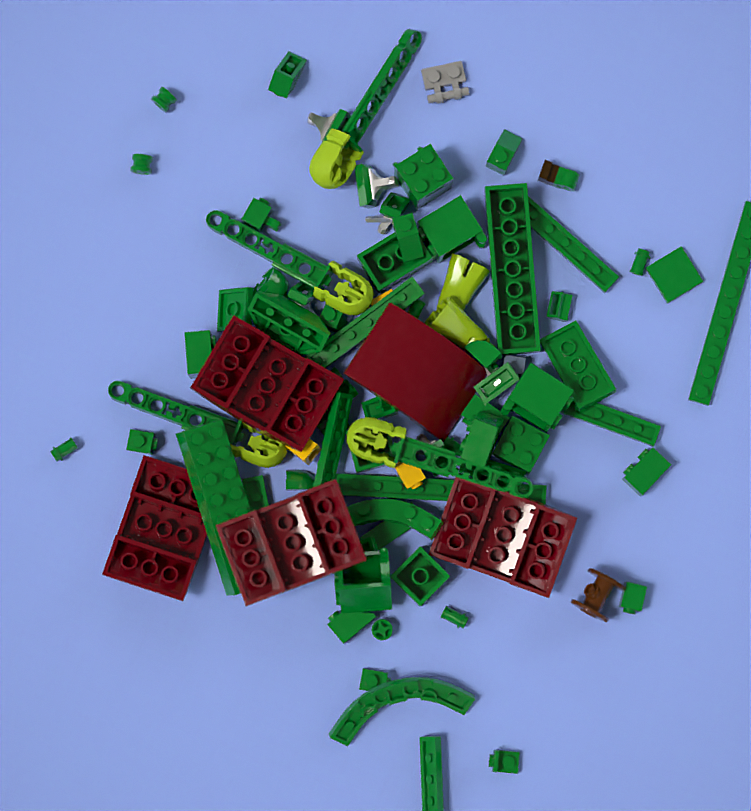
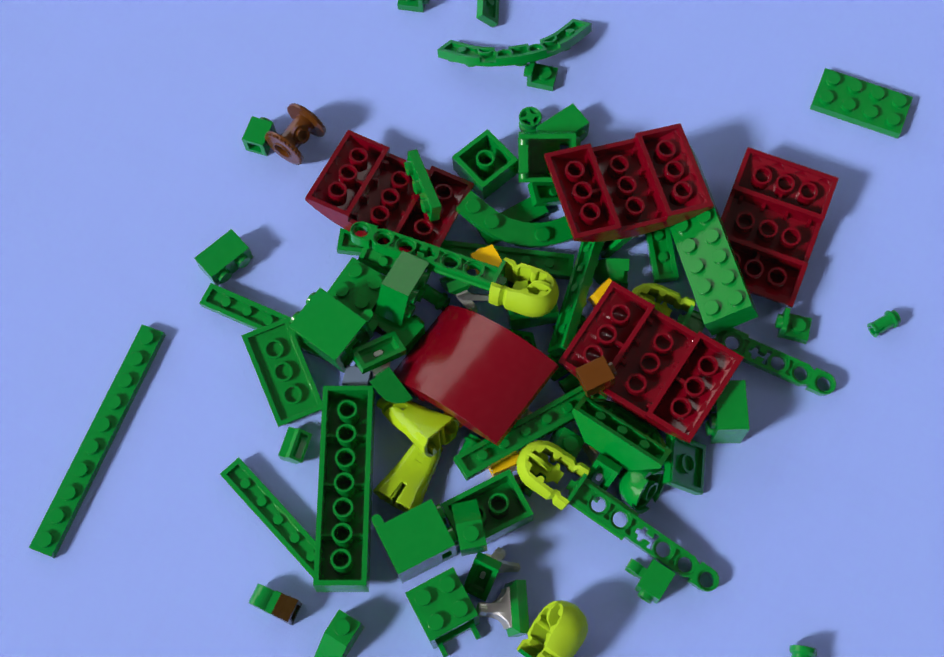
camera: 170 degrees left, 15 degrees down
(74, 671) = (861, 103): none -> green plate
(311, 362) = (596, 376): none -> reddish brown brick
(454, 617) = (450, 128): green pin -> none
(474, 539) = (422, 185): none -> green plate
(640, 262) = (192, 491): green pin -> none
(674, 274) = (154, 474): green tile -> none

